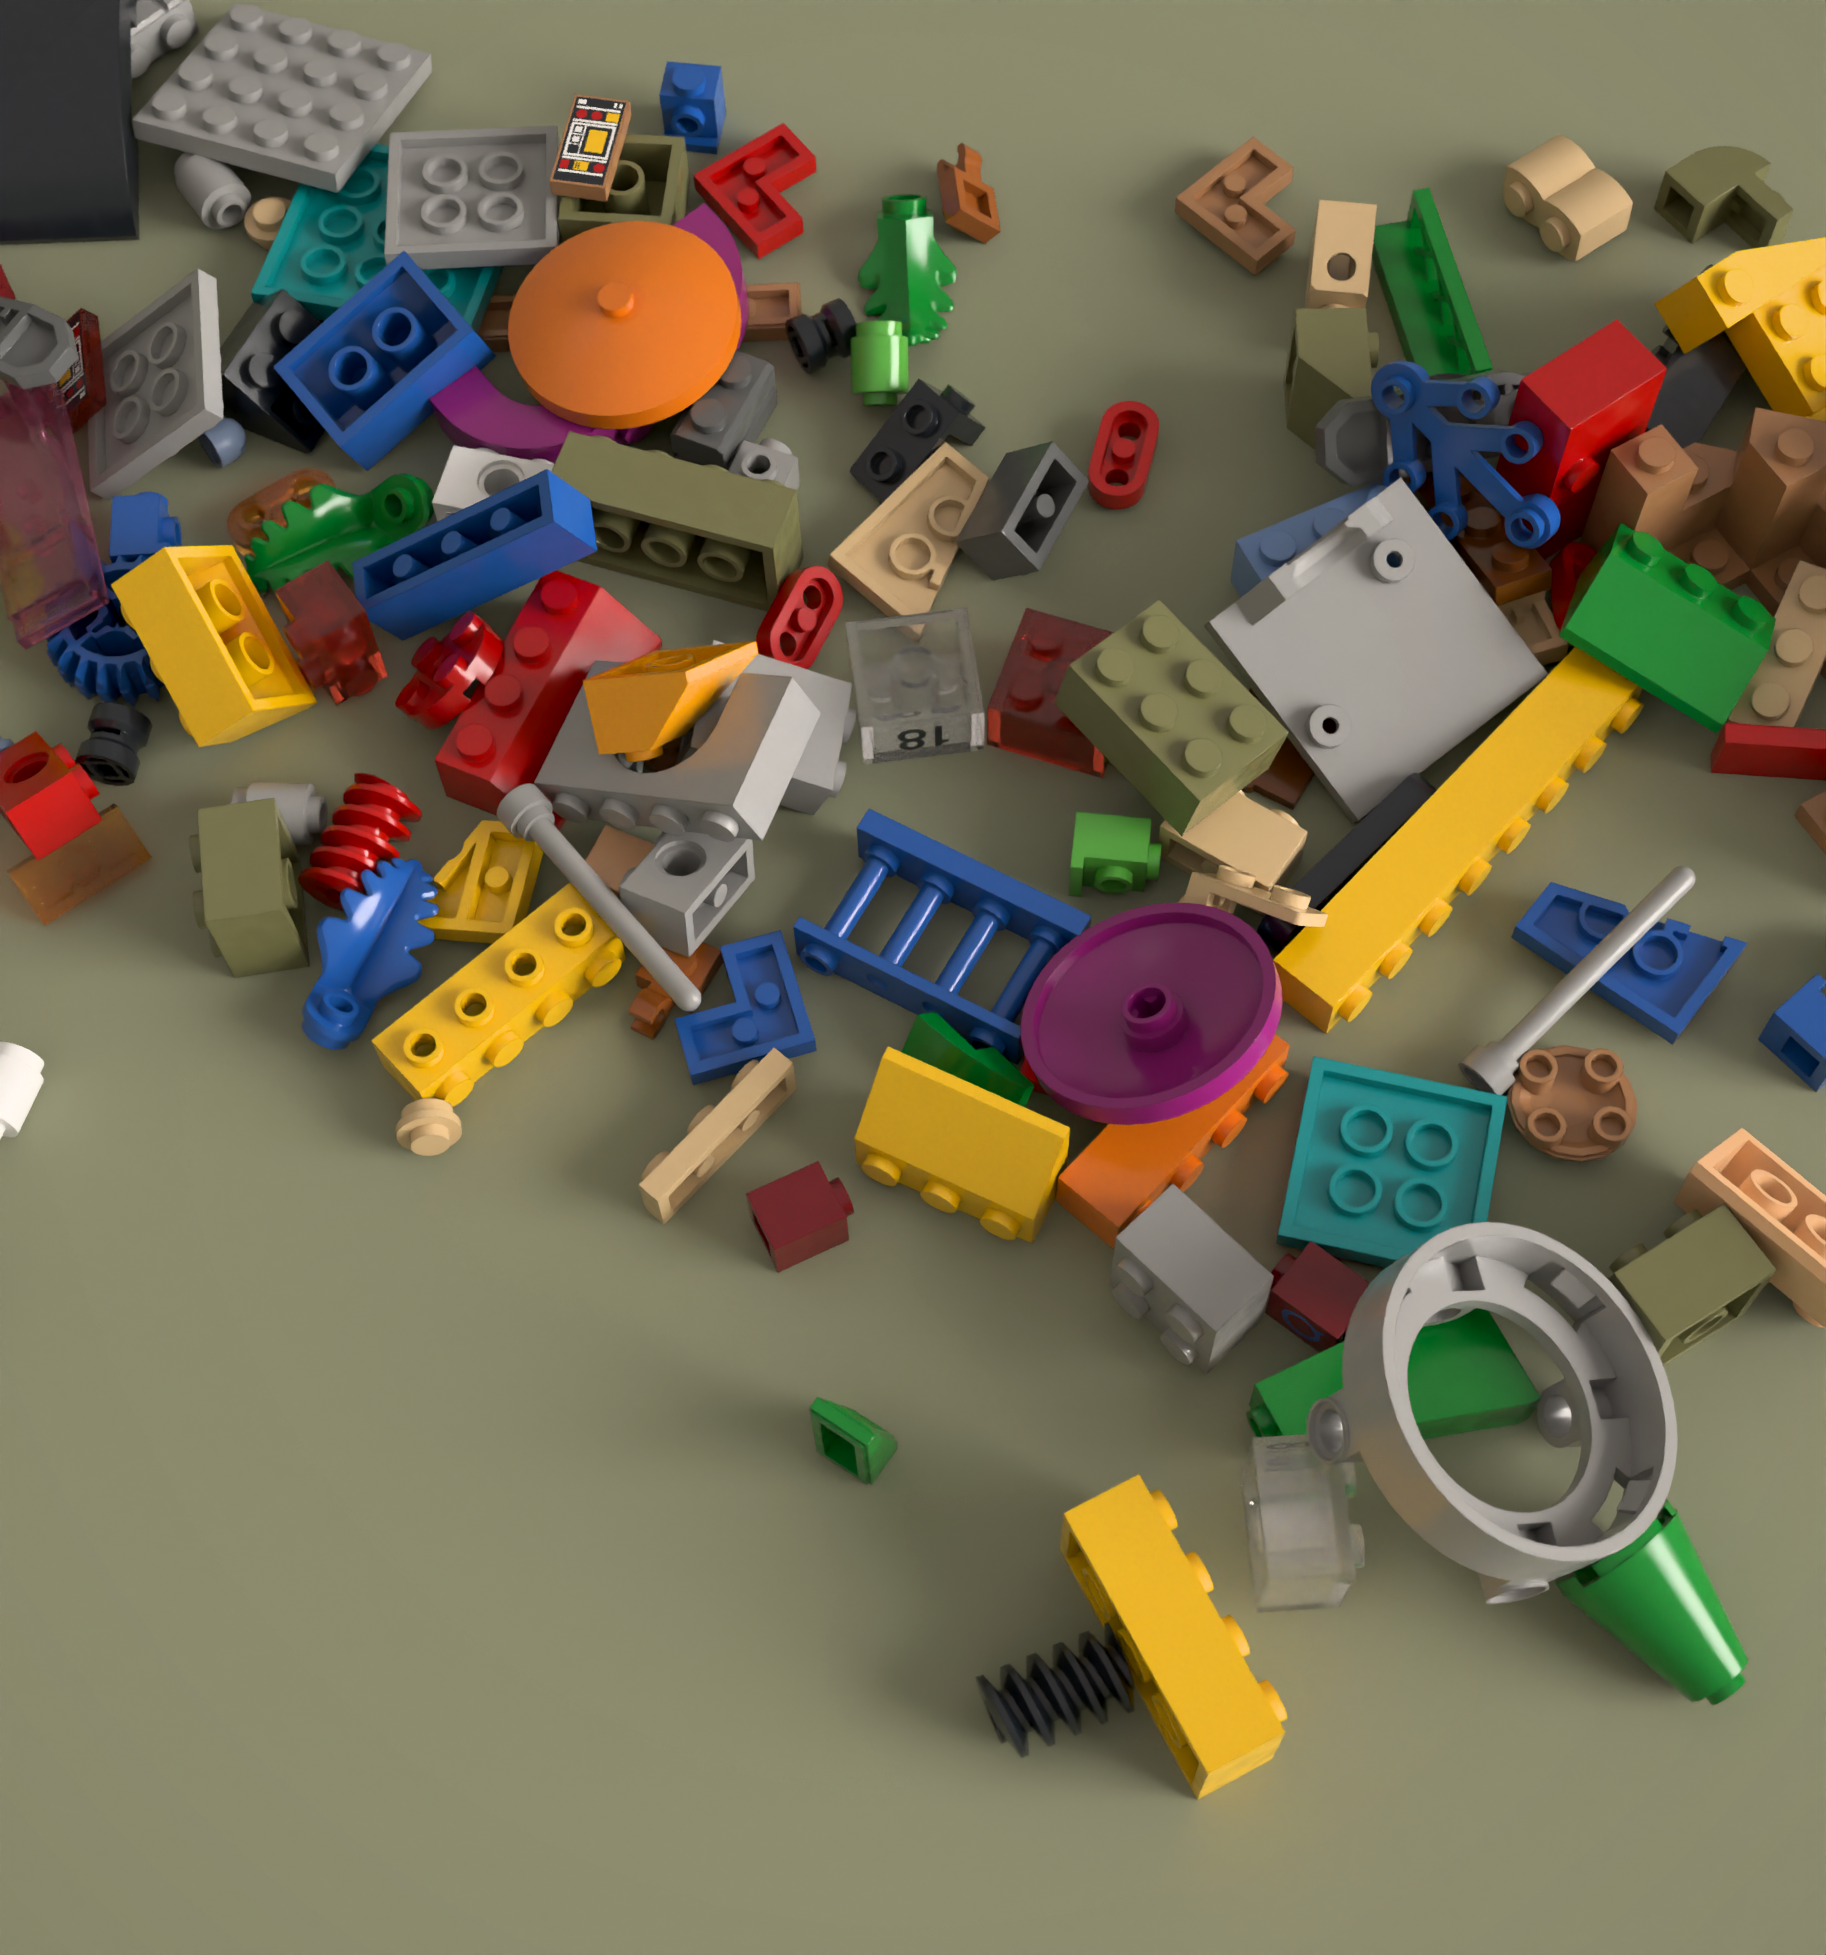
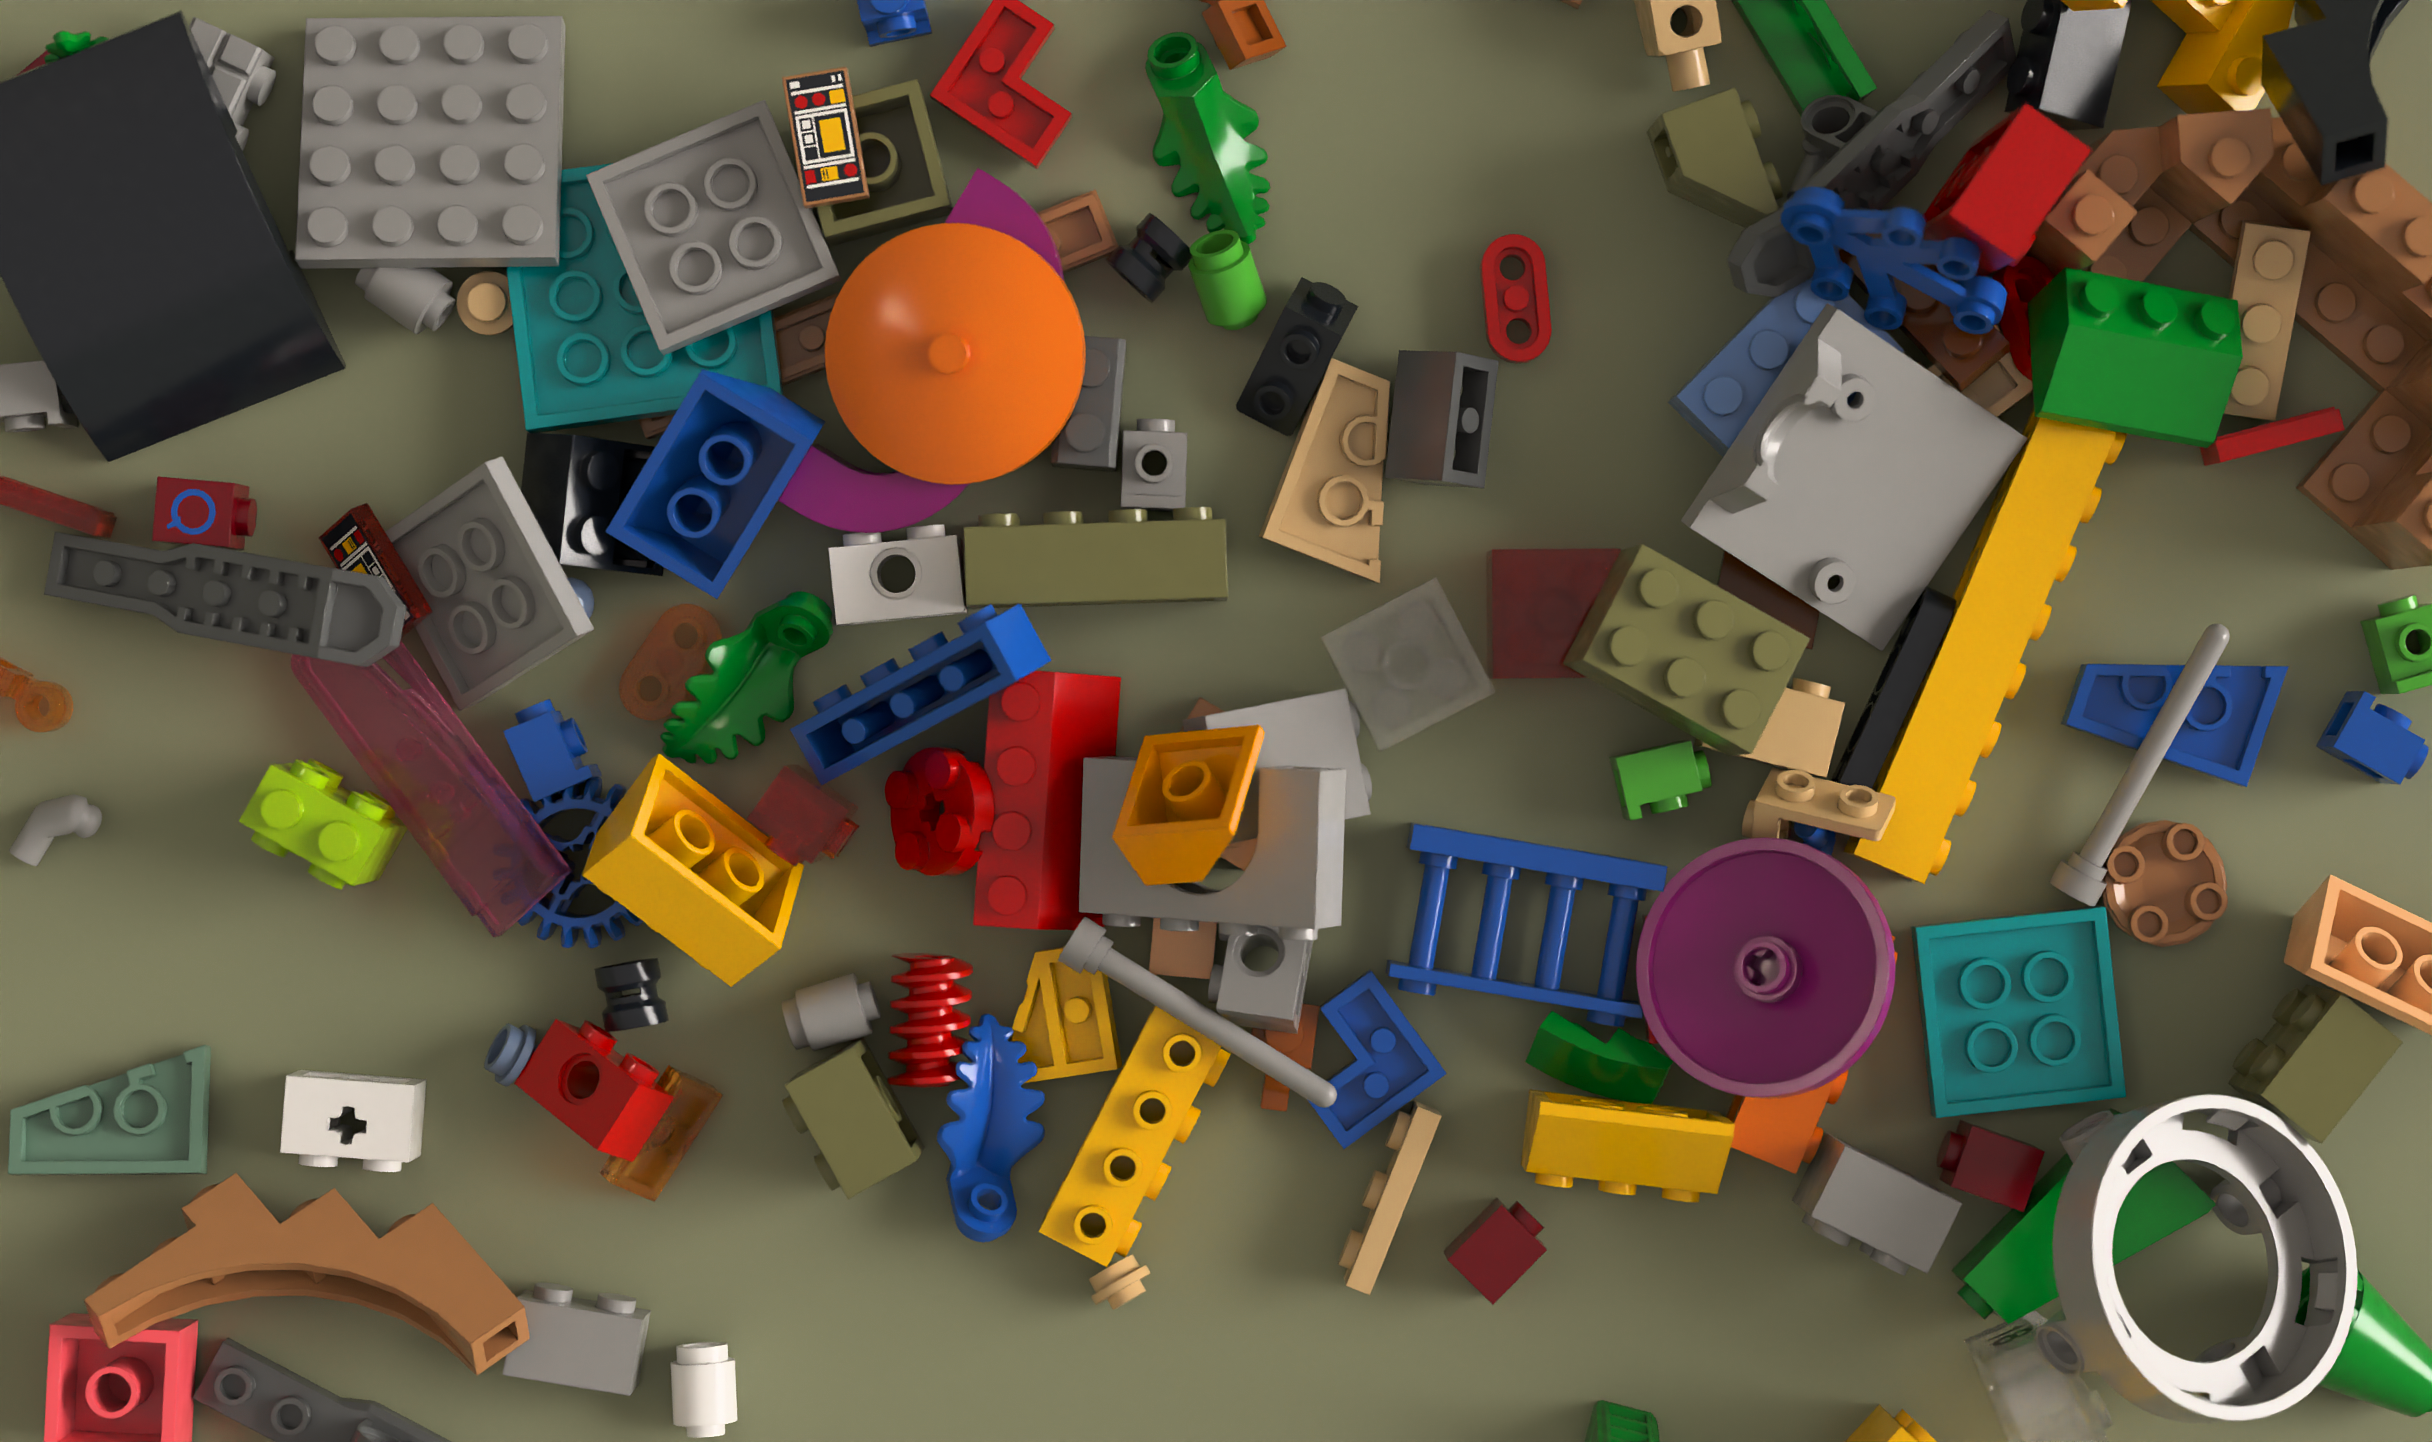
camera: 20 degrees left, 25 degrees up
(801, 626) = (1257, 617): red plate -> none

